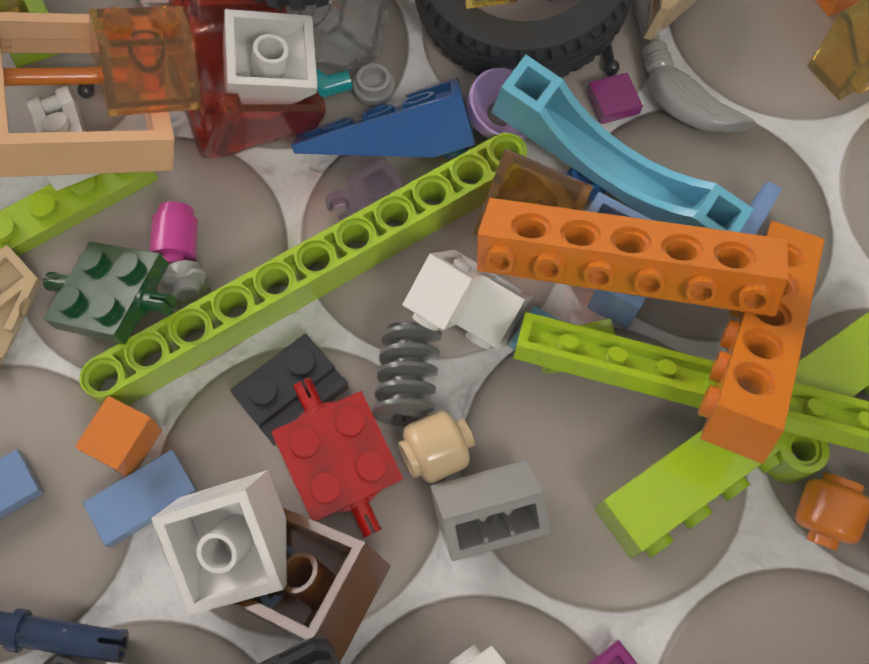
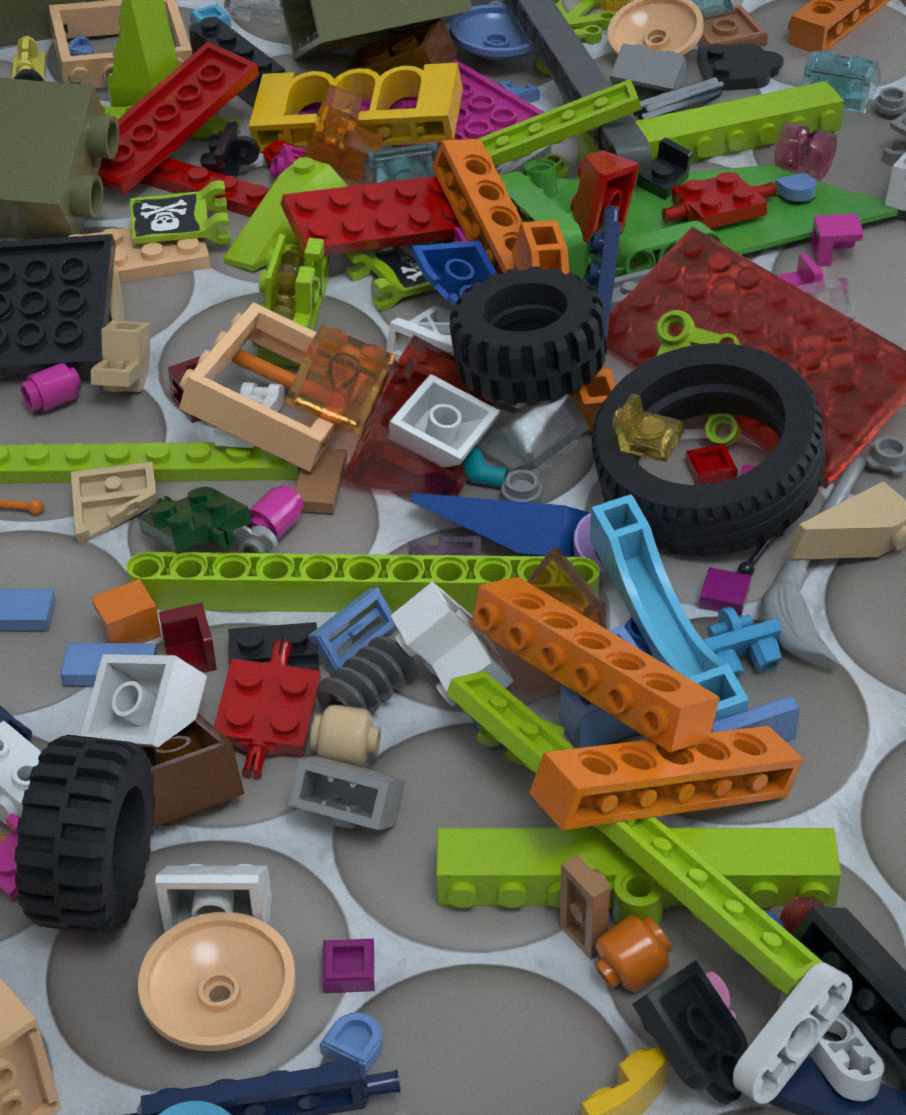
camera: 40 degrees right, 25 degrees down
(190, 178) = (323, 483): none -> medium nougat tile
(202, 428) = (188, 636): none -> dark red panel
(348, 323) = (321, 634): none -> medium blue tile
(674, 142) = (738, 637): none -> dark azure hips
(784, 499) = (583, 904): none -> medium nougat plate

